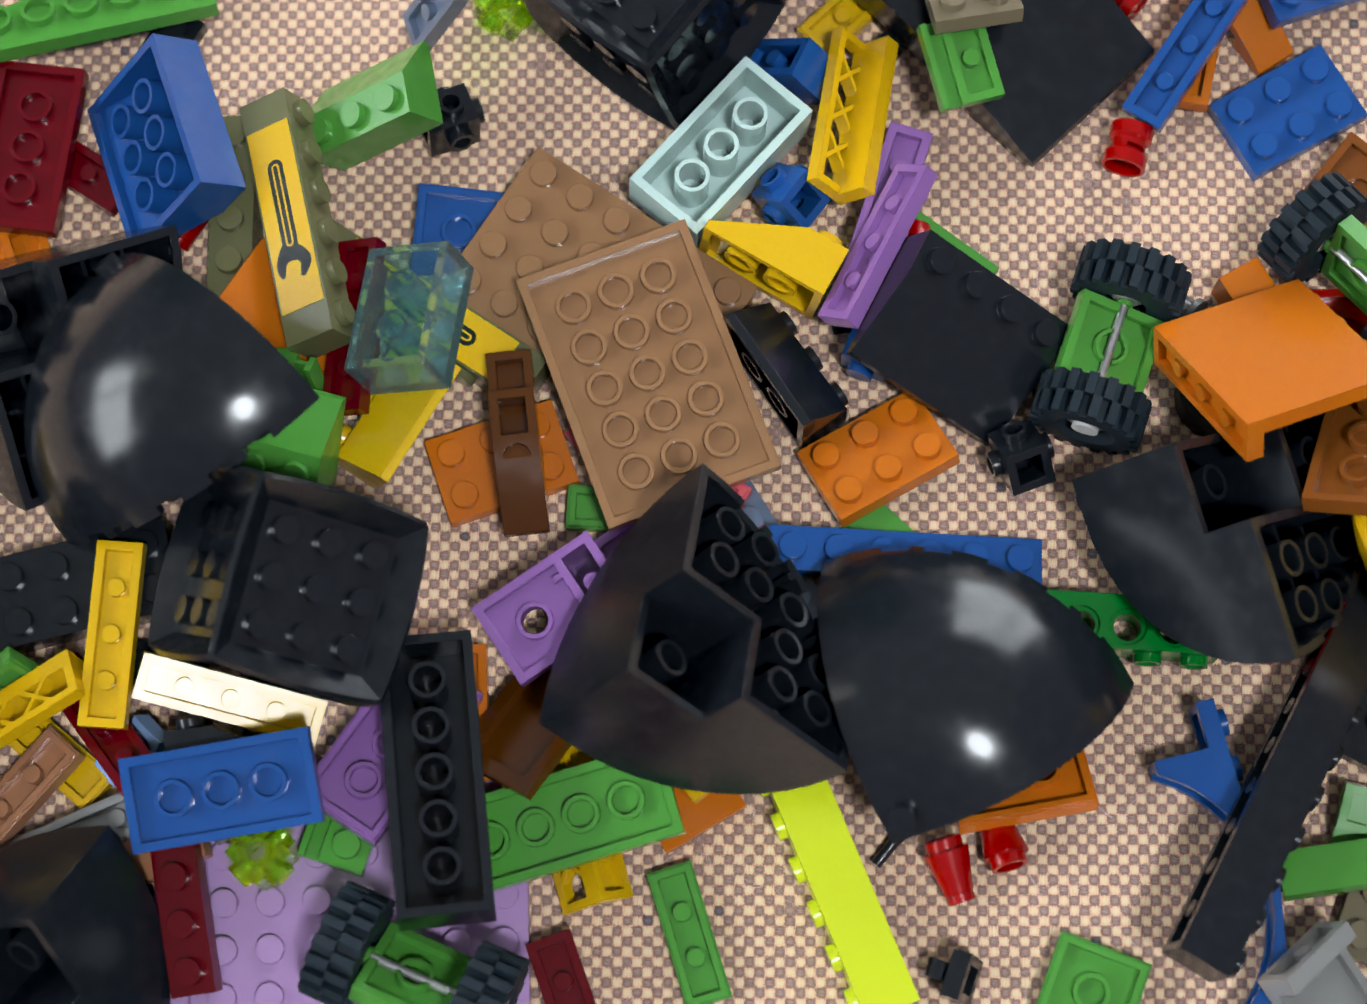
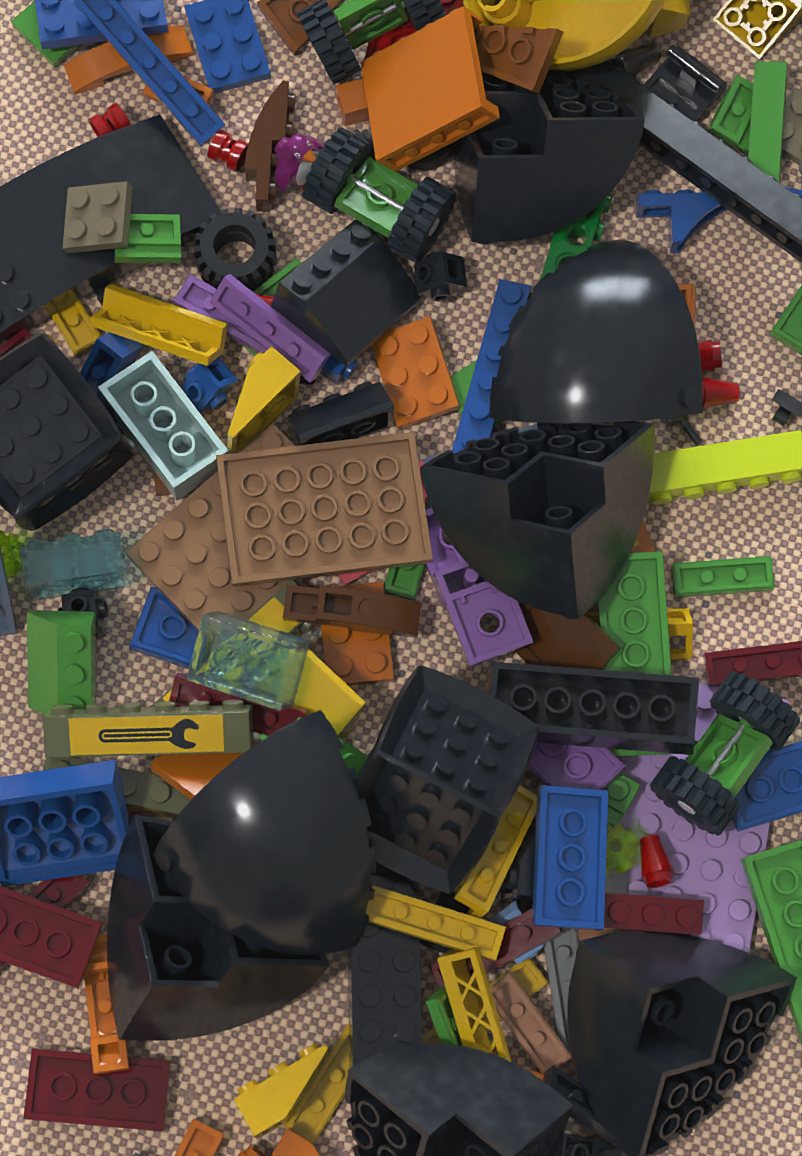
camera: 85 degrees left, 0 degrees up
(258, 915) = (655, 863): none -> red cone
(508, 88) = (74, 562): none -> clear light blue brick
(992, 155) = (231, 228): none -> black tyre
(1135, 221) = (295, 160): none -> magenta animal
(1166, 192) = (267, 132): none -> reddish brown slope

